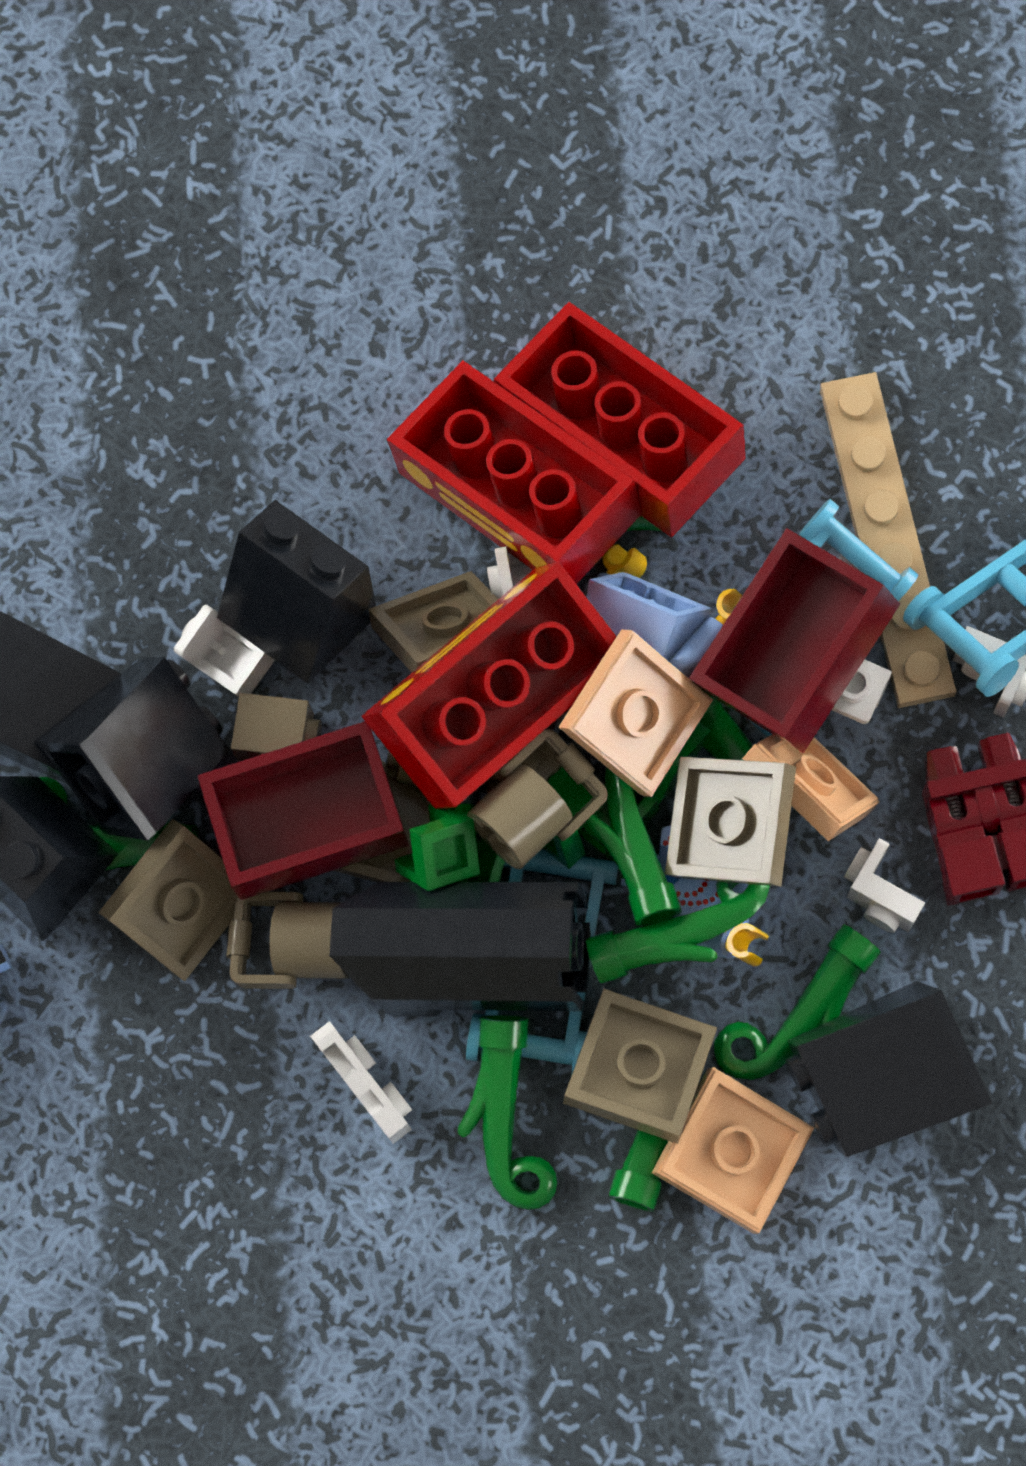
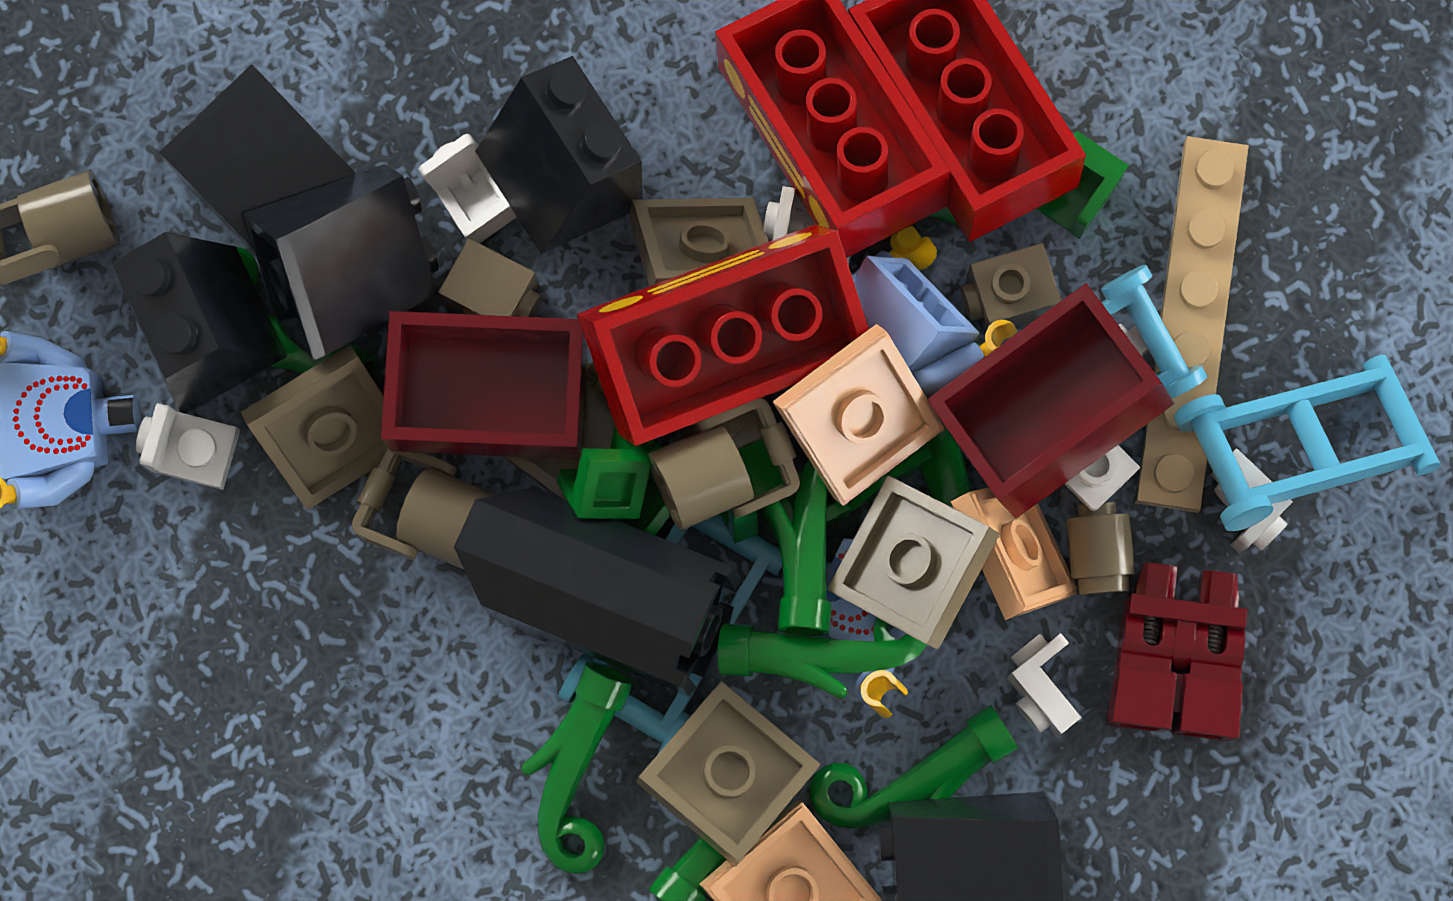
camera: 15 degrees right, 5 degrees up
(59, 965) = (186, 446): none -> white bracket
(352, 1063) = (441, 657): white wing -> none
(720, 562) = (1010, 287): none -> dark tan brick
(754, 473) = (1098, 181): none -> green panel
(885, 756) = (1100, 549): none -> dark tan brick

